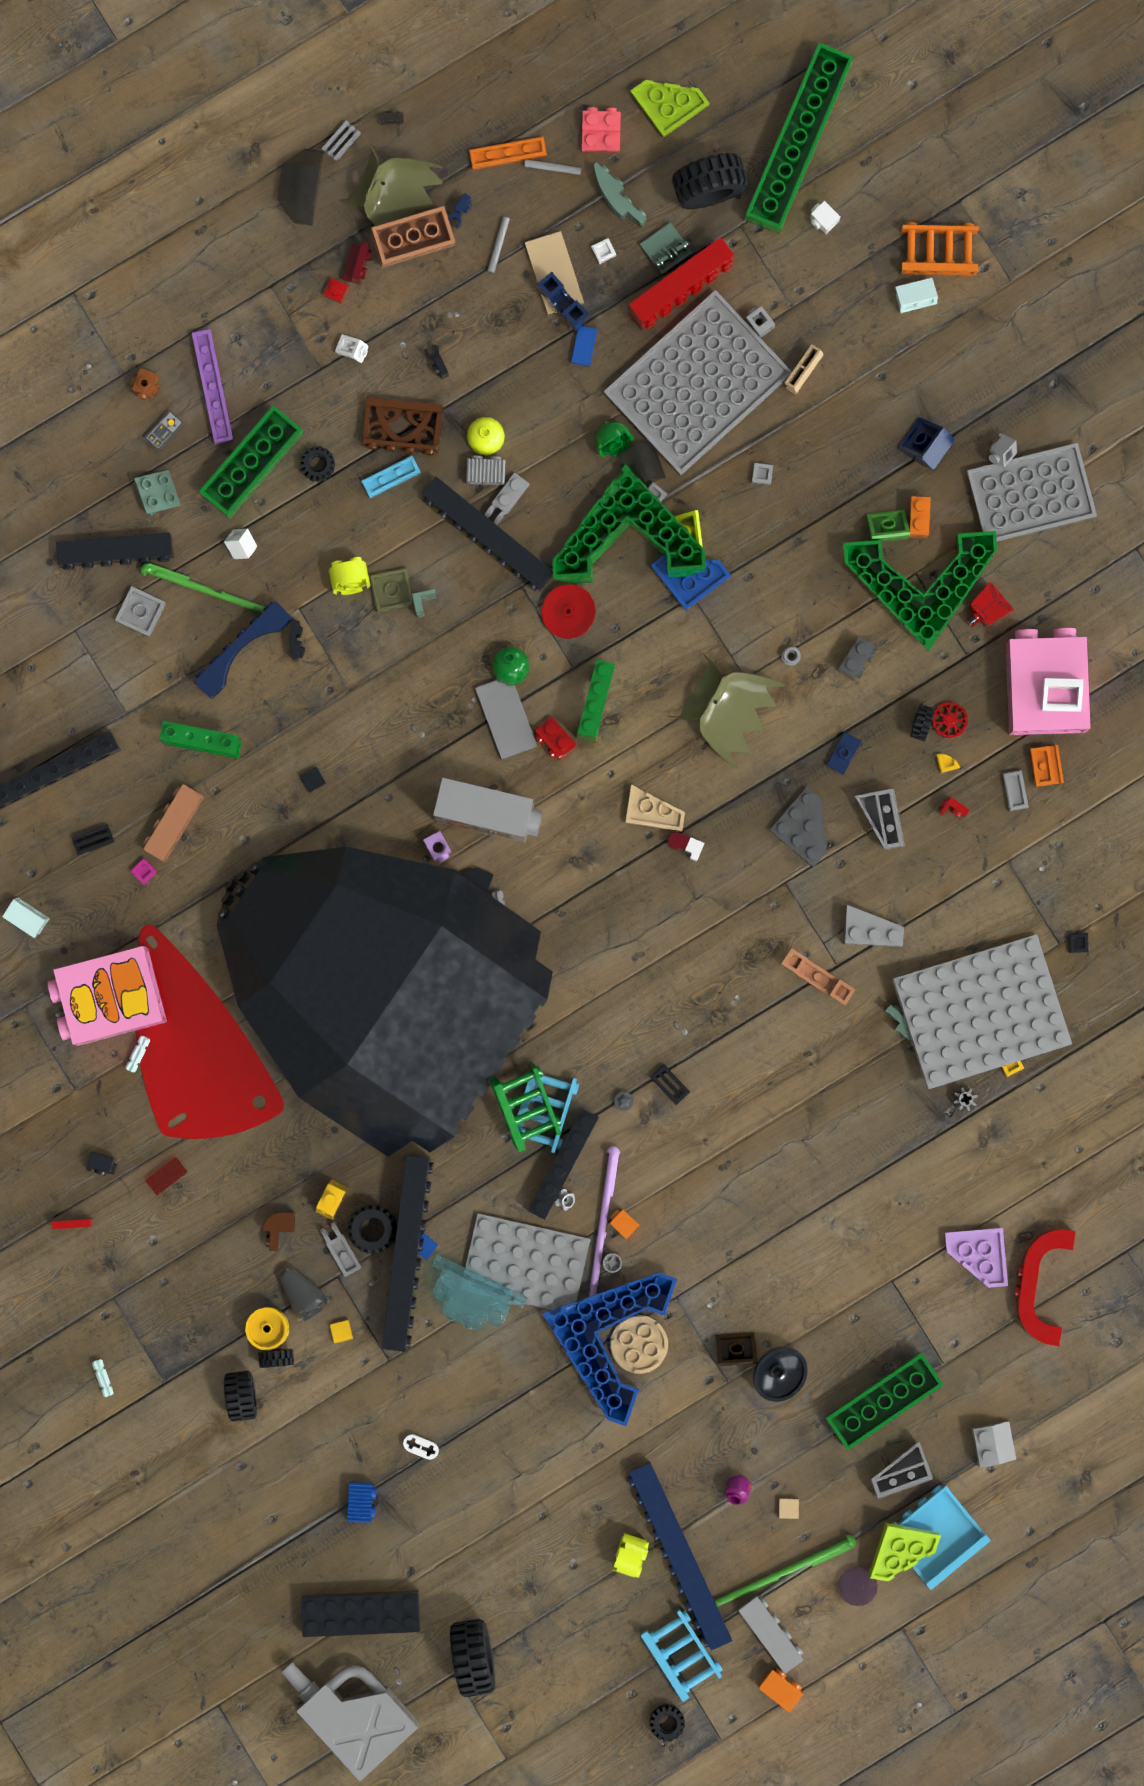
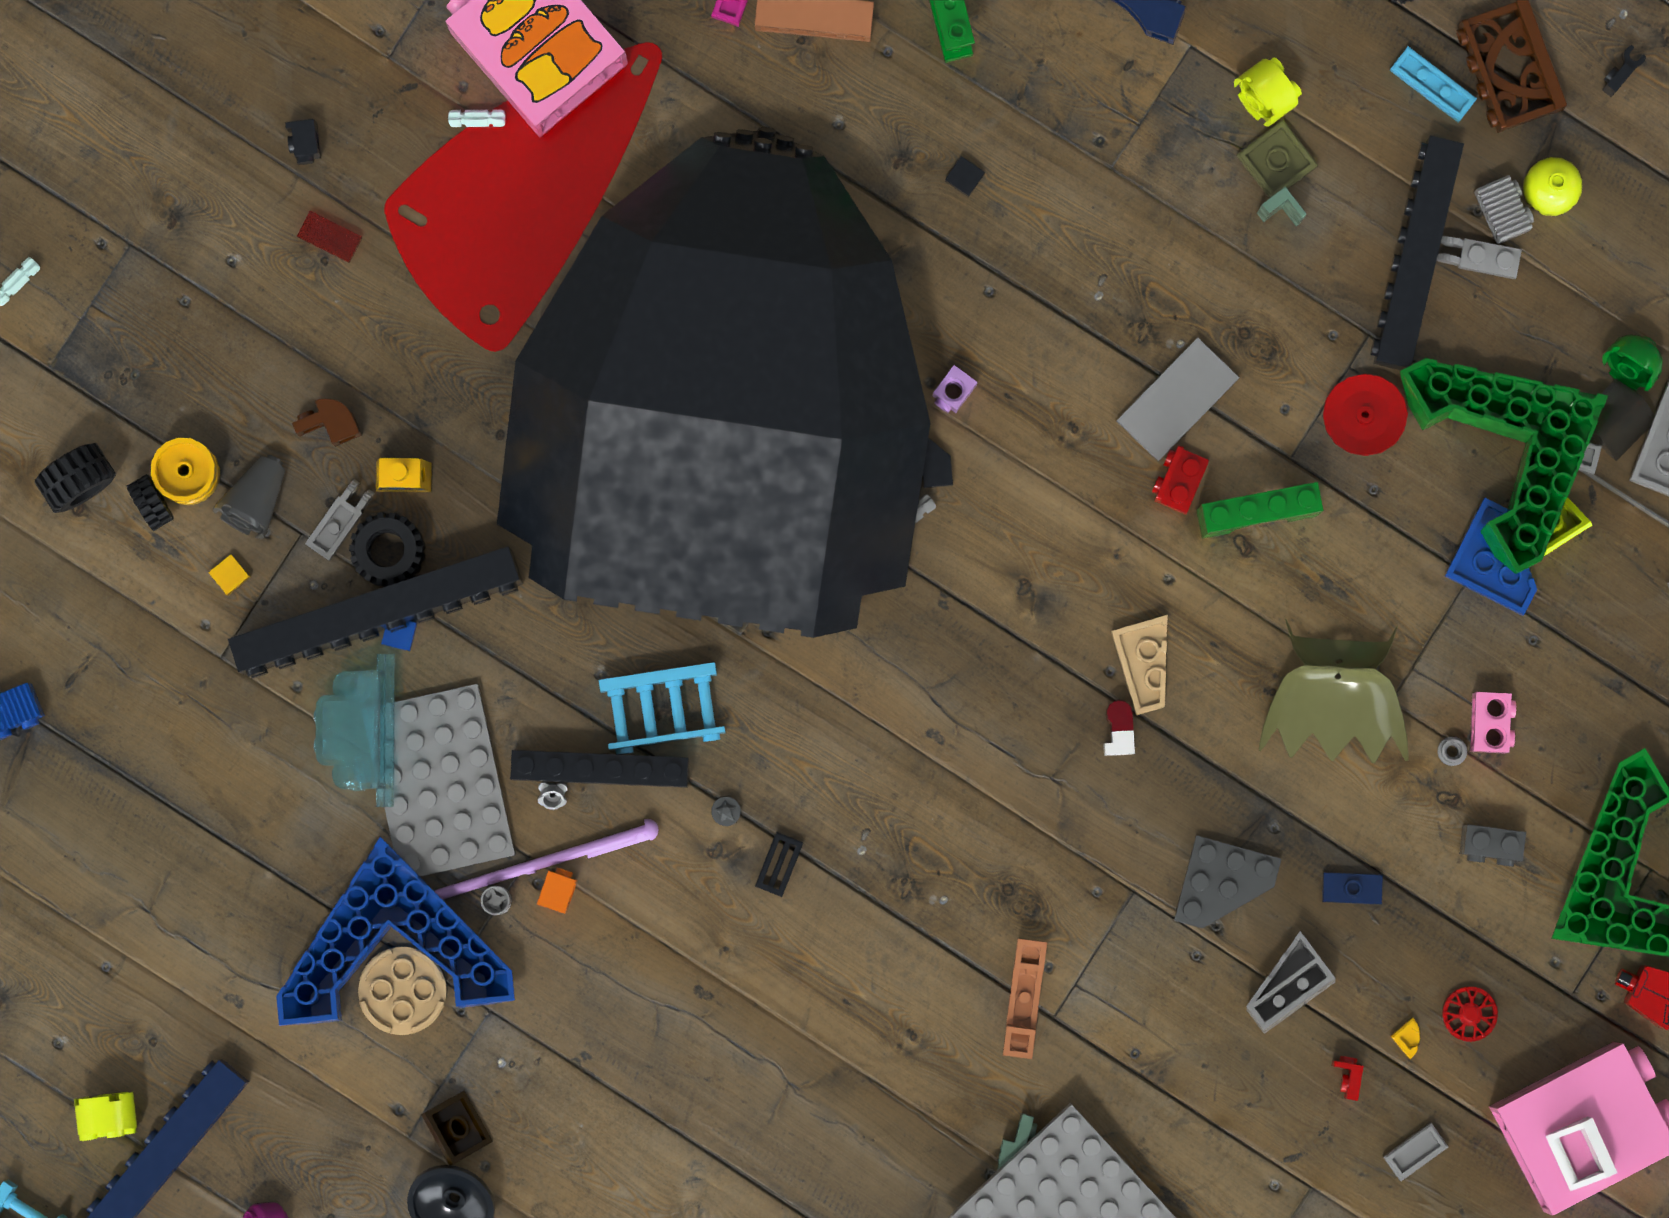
camera: 65 degrees right, 0 degrees up
(72, 1224) = (203, 140): red tile -> none
(296, 646) = (1136, 66): black slope -> none
(419, 1451) = (130, 758): white beam -> none
(486, 811) = (1034, 430): light grey brick -> none
(506, 1105) = (642, 652): green fence -> none
(510, 666) = (1251, 371): green cylinder -> none
(782, 630) = (1482, 722): none -> bright pink brick
(870, 930) = (1124, 1041): light grey wedge -> none
(922, 722) = (1447, 977): black tyre -> none
(1046, 765) = (1471, 1179): orange plate -> none

